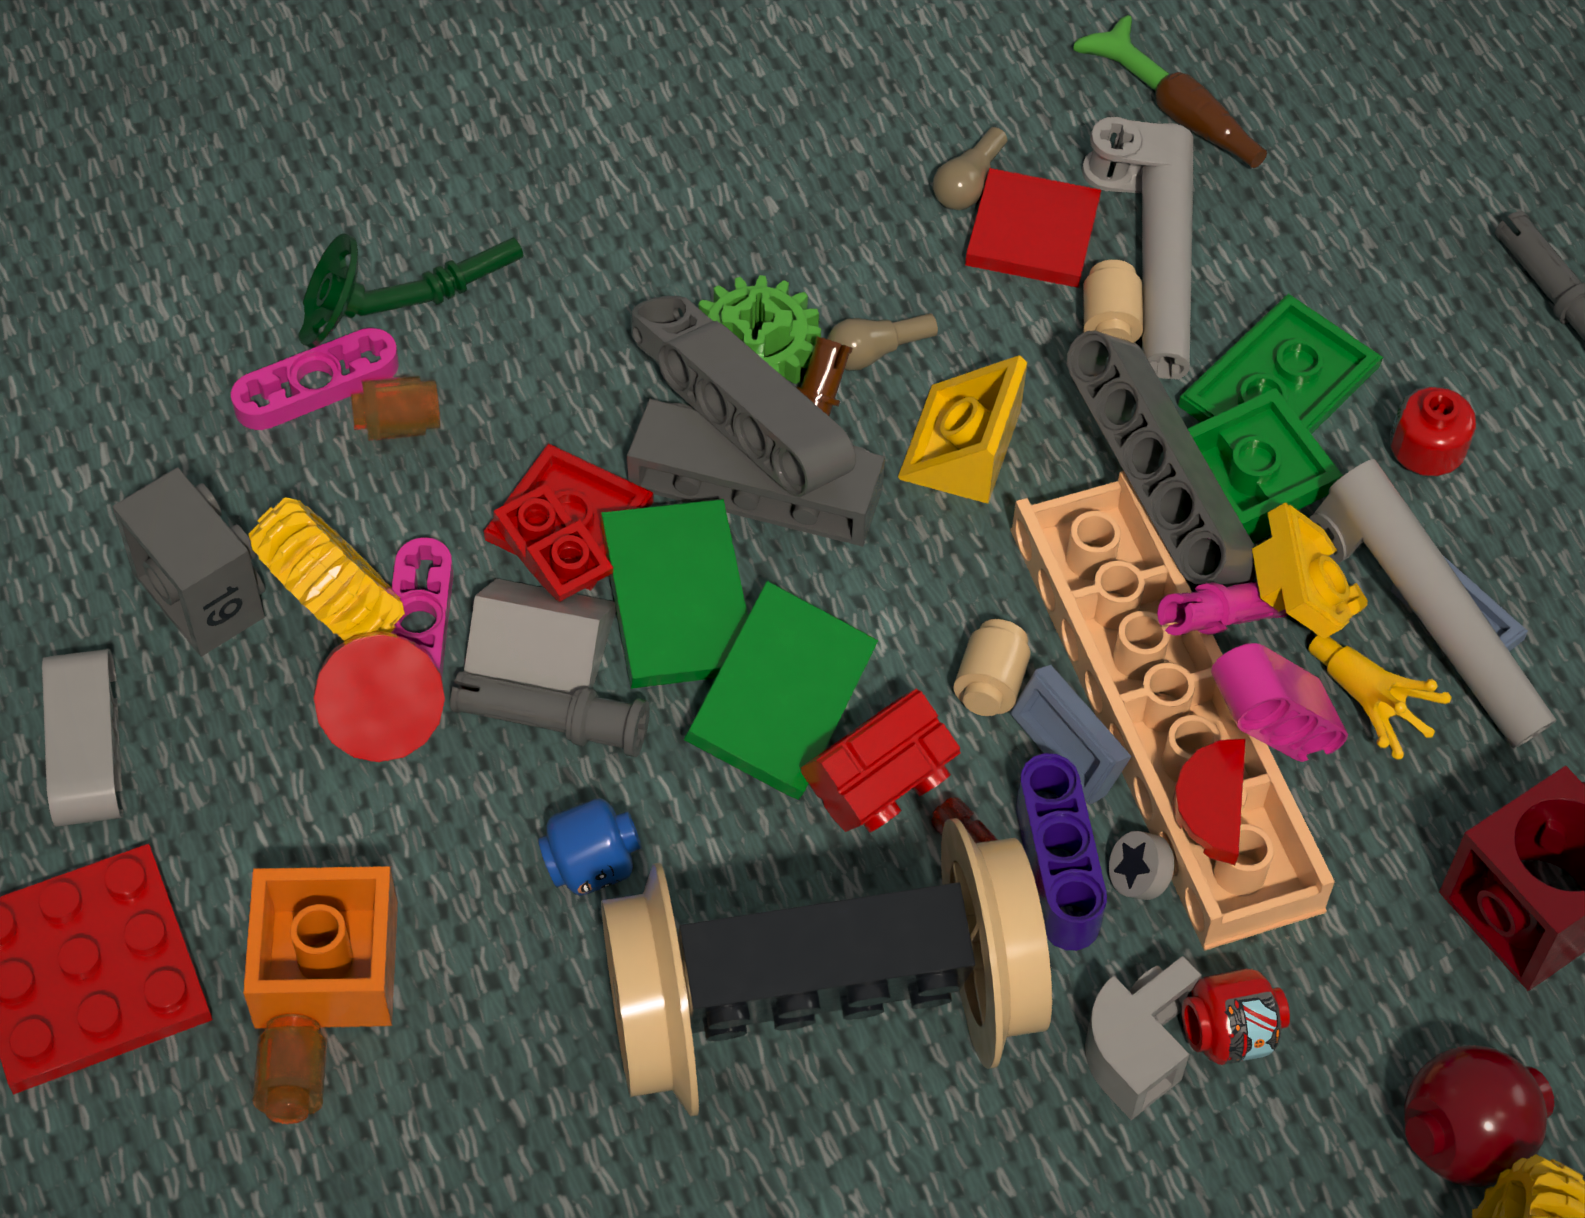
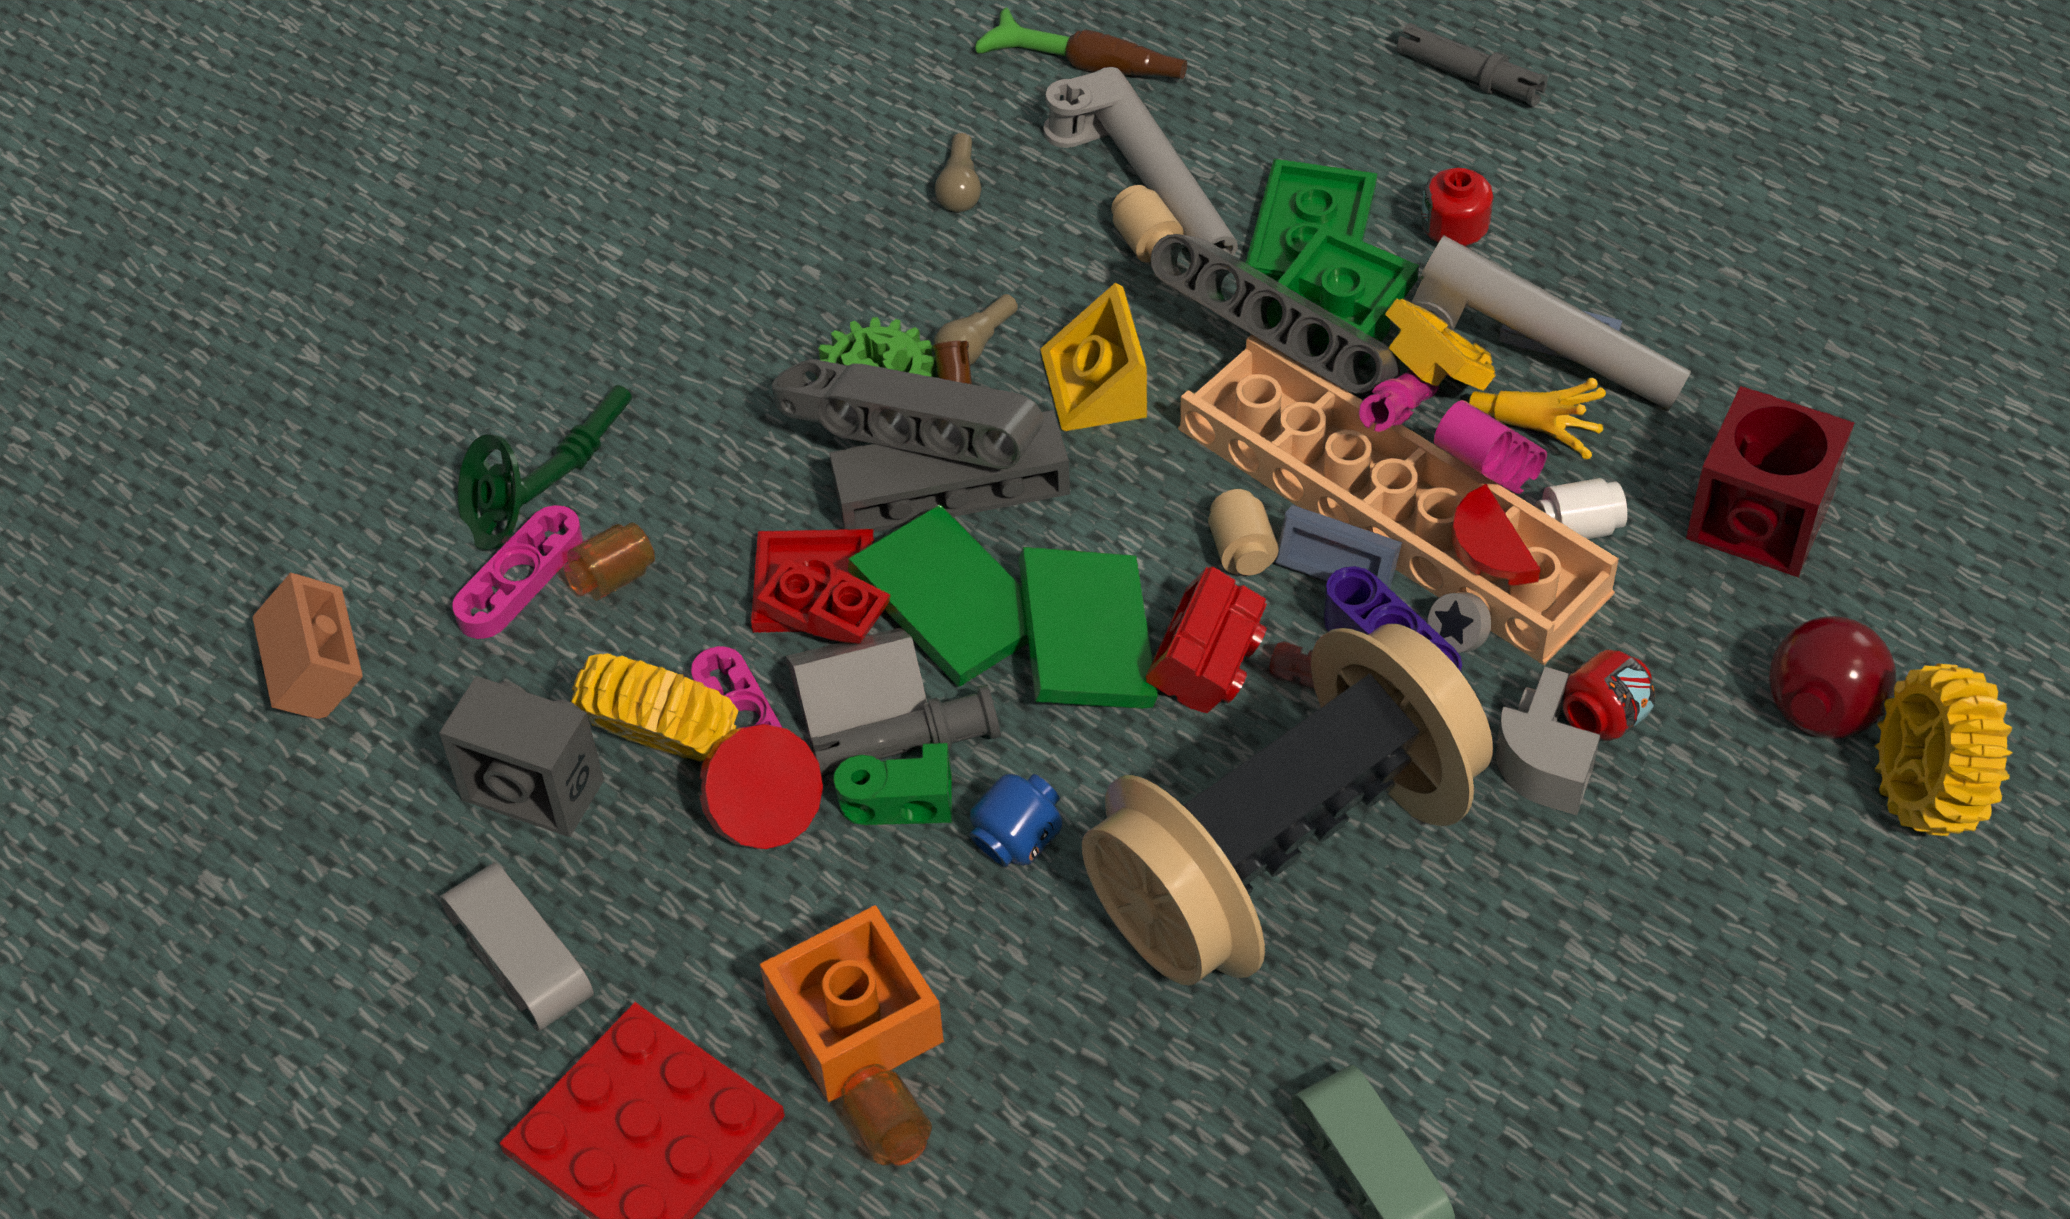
camera: 25 degrees left, 5 degrees down
(82, 363) = (307, 646): none -> nougat brick
(506, 762) = (897, 788): none -> green leg
(1033, 227) = (1040, 196): red tile -> none
(1345, 810) = (1587, 506): none -> white brick

